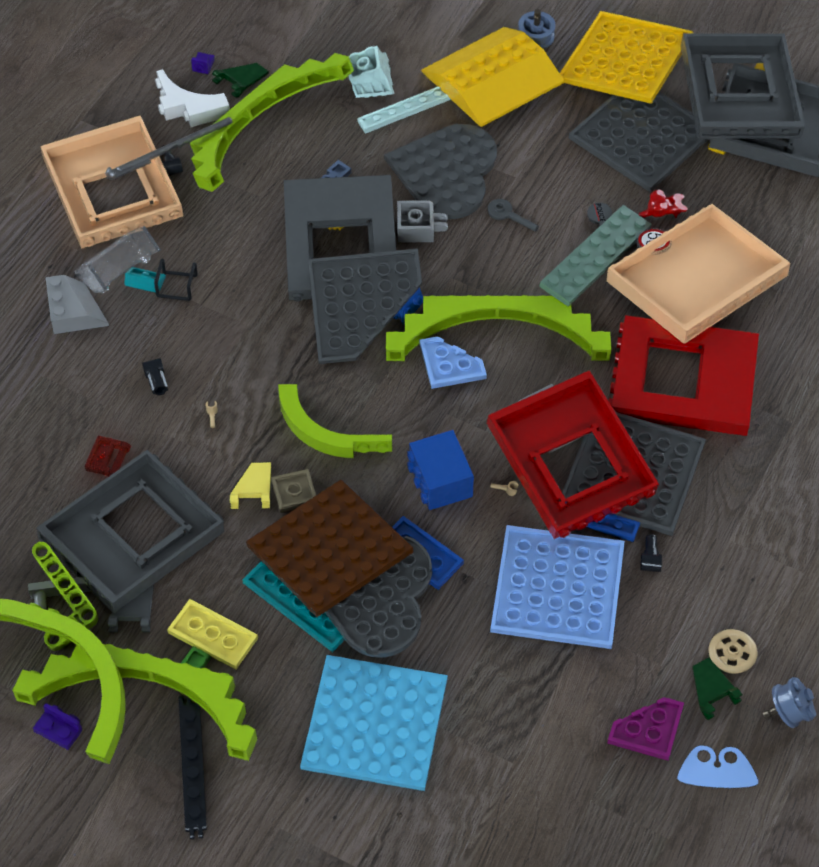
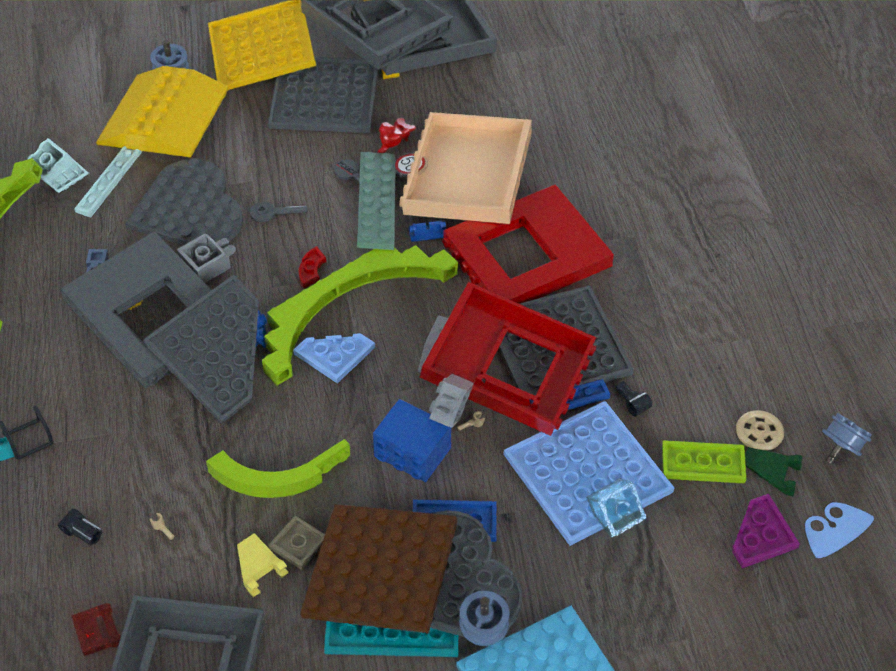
camera: 40 degrees left, 5 degrees down
(363, 634) = (484, 618): none -> sand blue wheel
(487, 456) = (451, 400): none -> light grey hinge
(494, 280) = (309, 267): none -> red tile
(547, 627) = (617, 507): none -> clear light blue slope
(614, 308) = (422, 232): none -> blue hinge
(658, 642) = (704, 461): none -> lime plate

